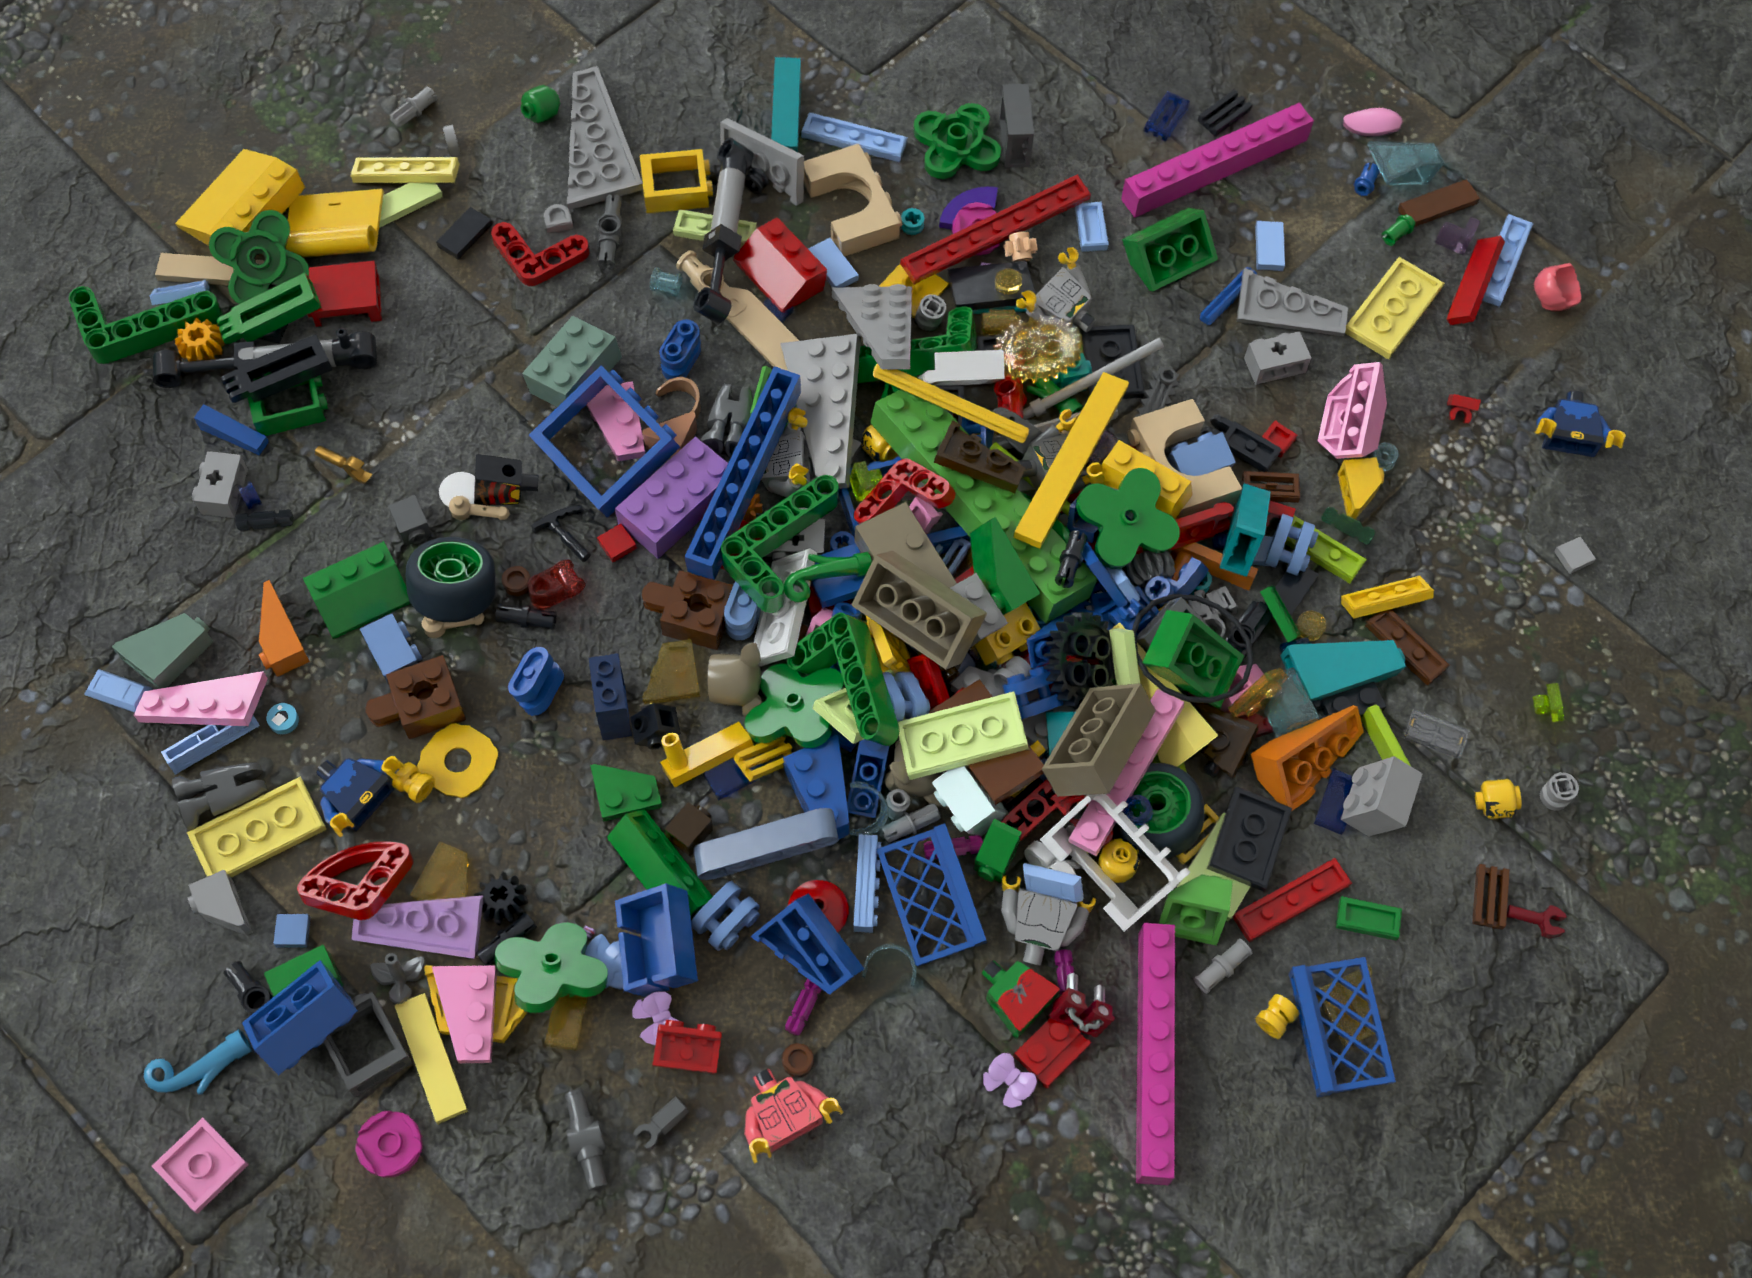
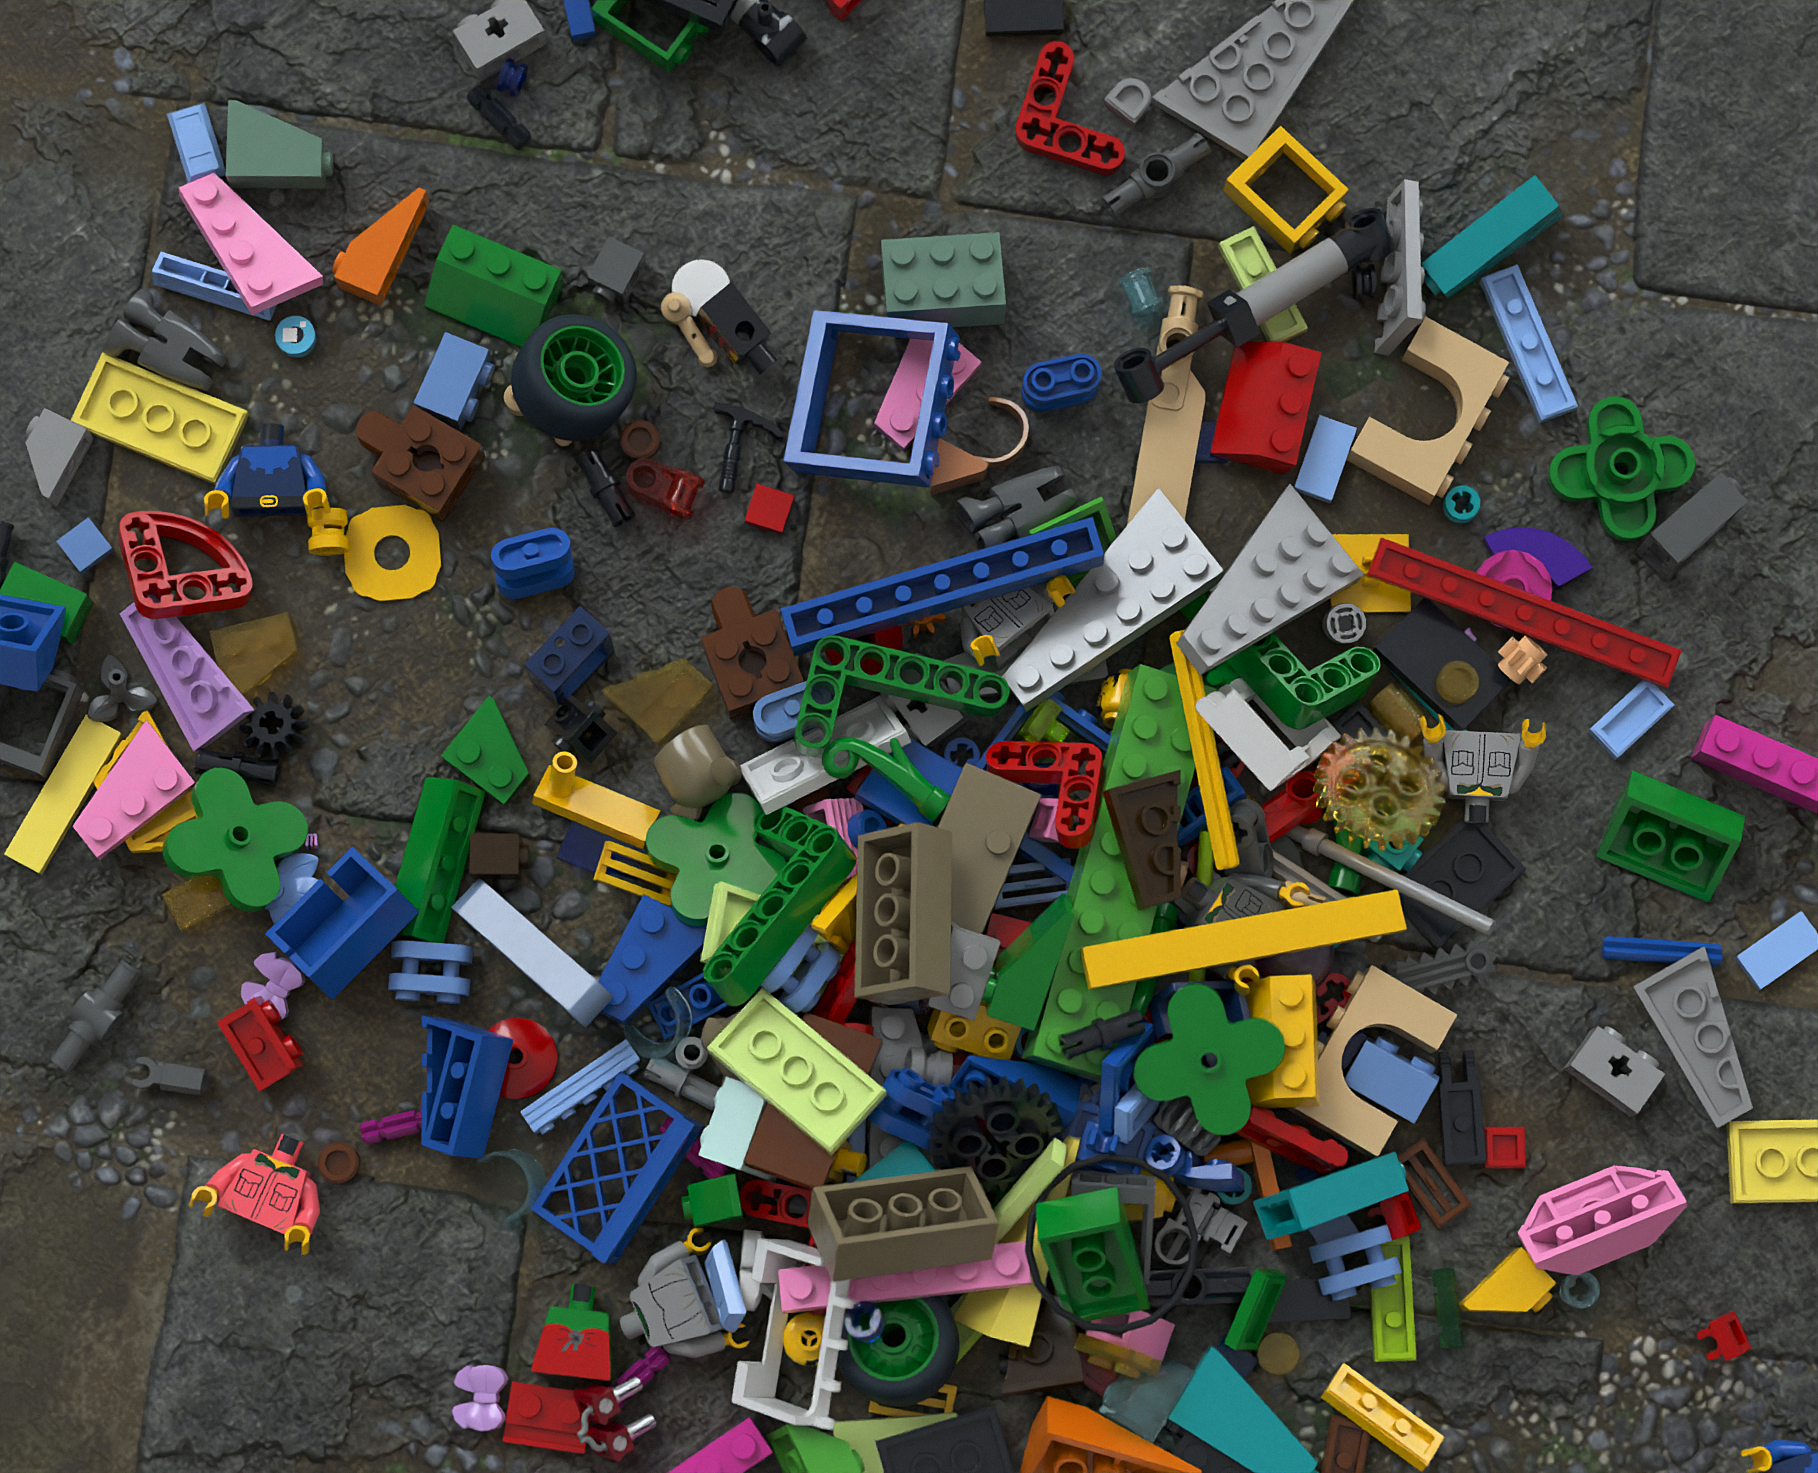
camera: 50 degrees right, 15 degrees up
(351, 466) = (629, 136): pearl gold piece -> none
(672, 498) = (868, 528): medium lavender brick -> none

